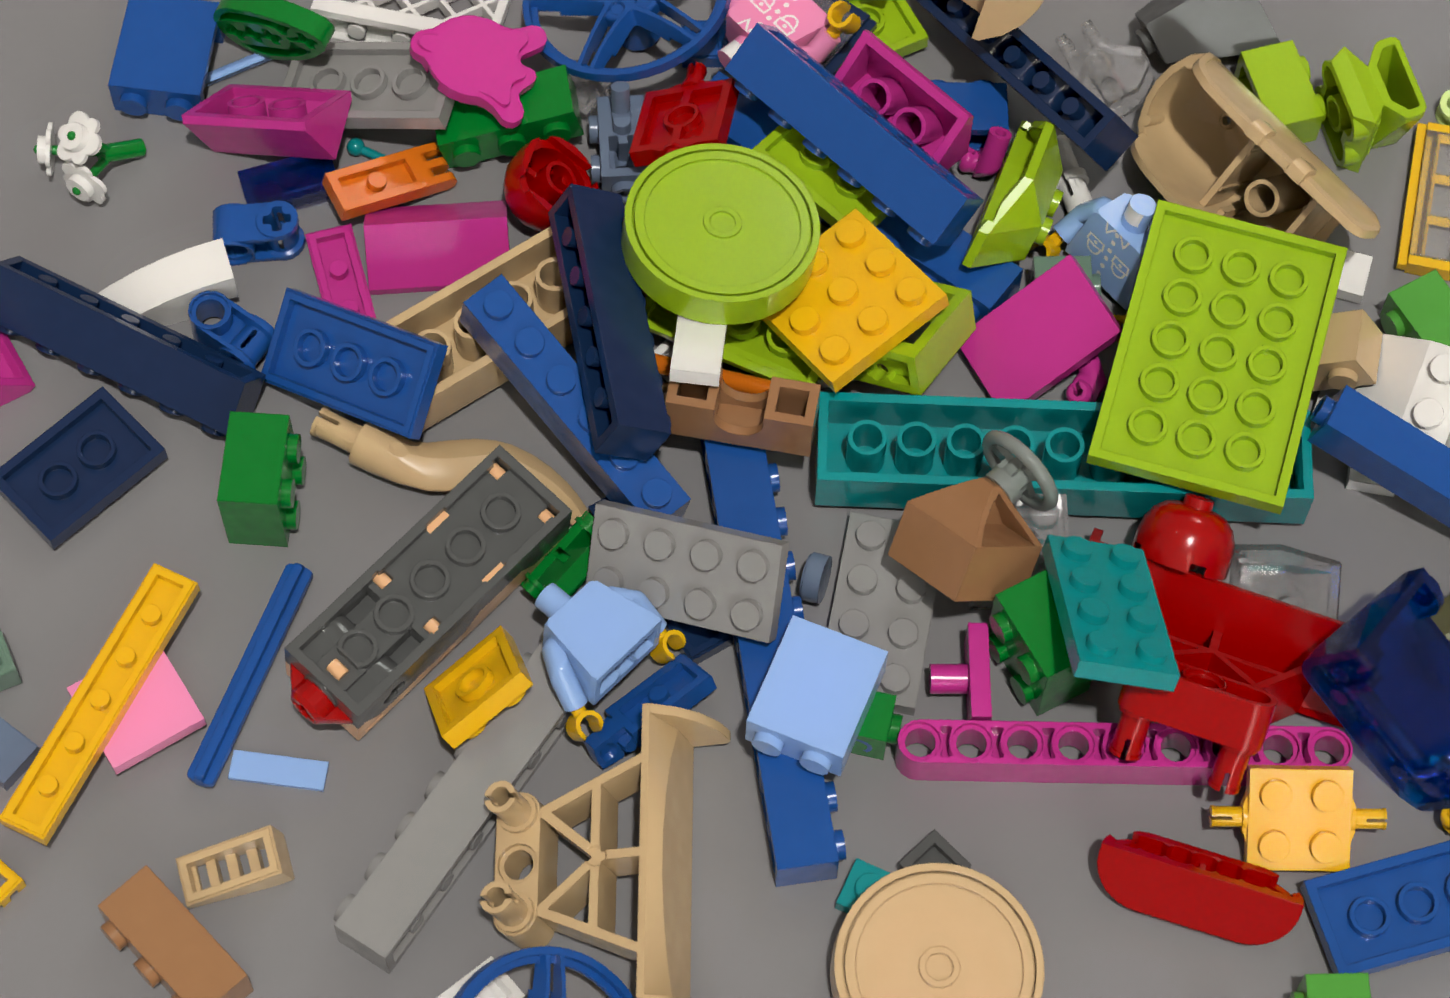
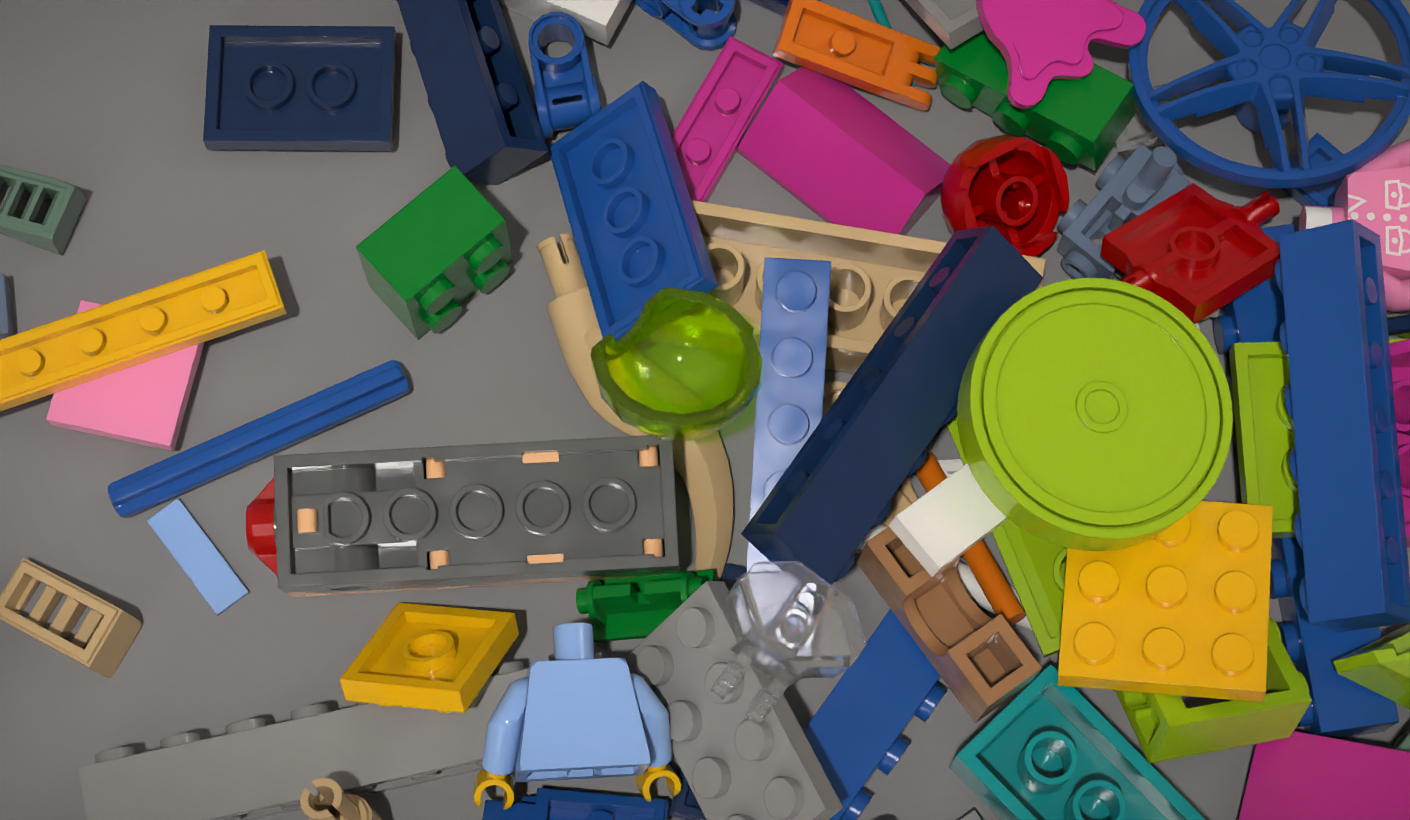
camera: 45 degrees right, 10 degrees up
(472, 400) = (680, 367): none -> clear neon green cylinder
(670, 482) = (783, 637): none -> clear hinge

